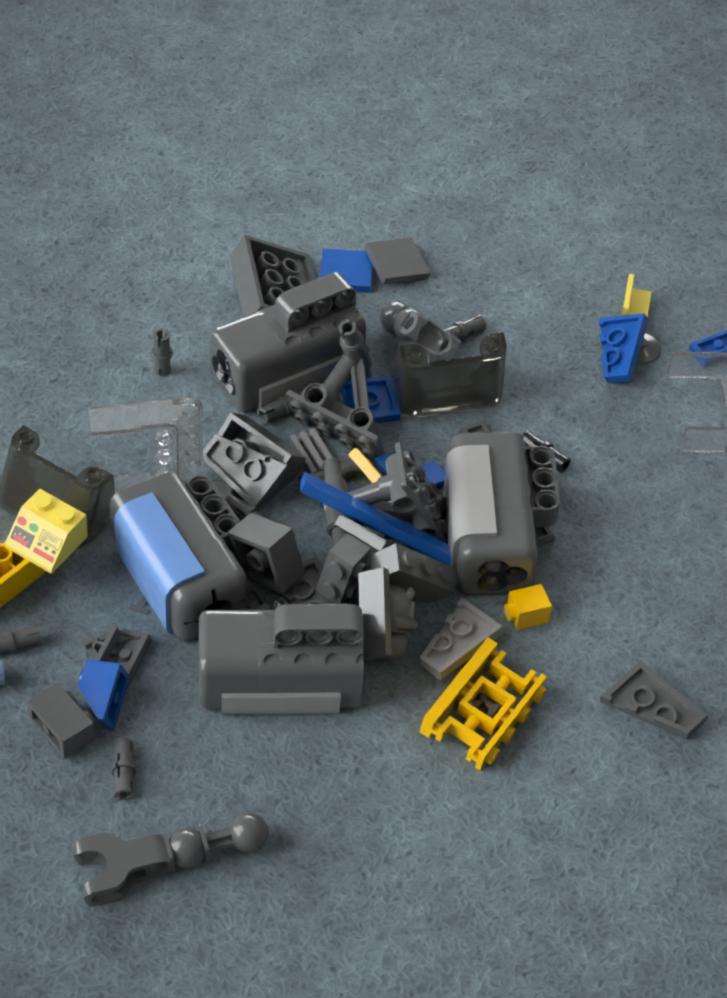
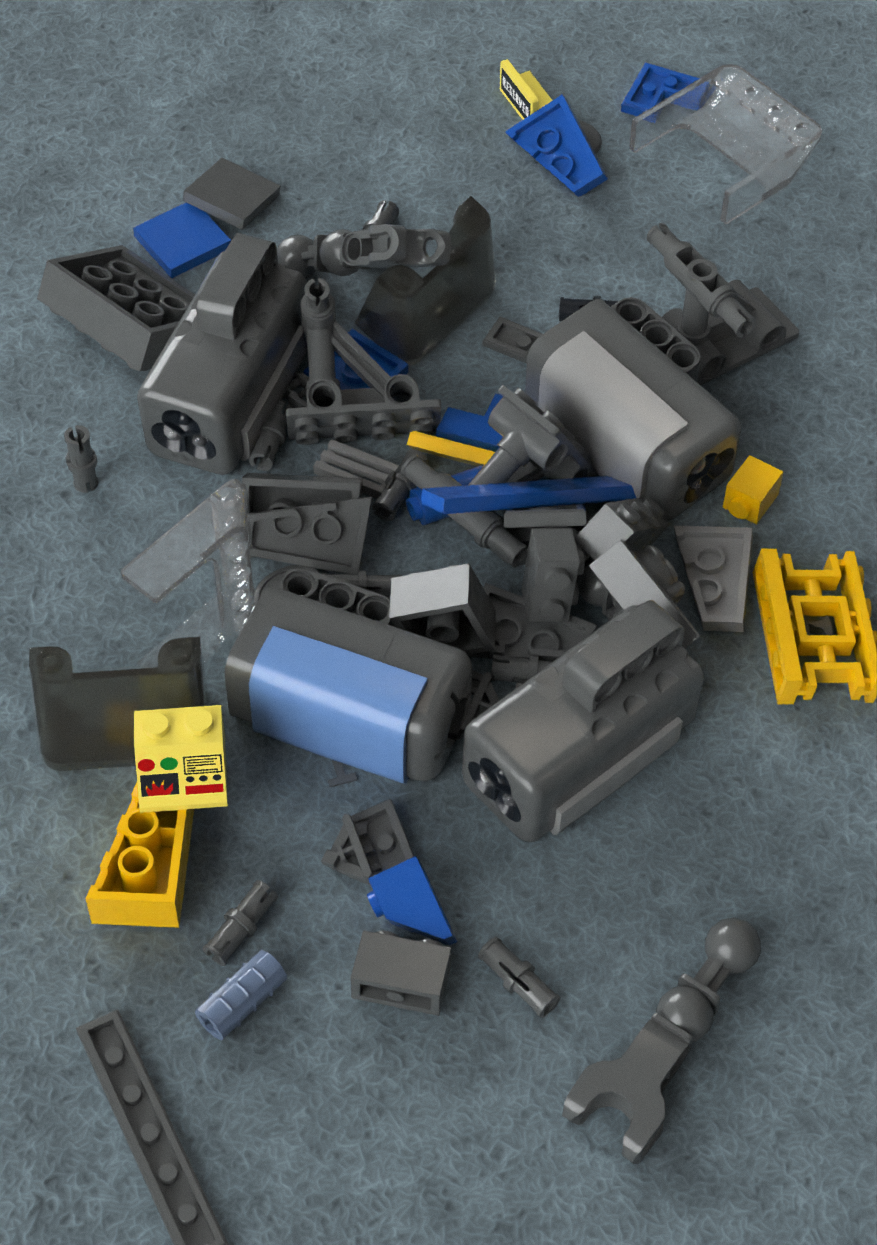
camera: 35 degrees left, 5 degrees up
(617, 512) = (717, 316): none -> dark grey plate

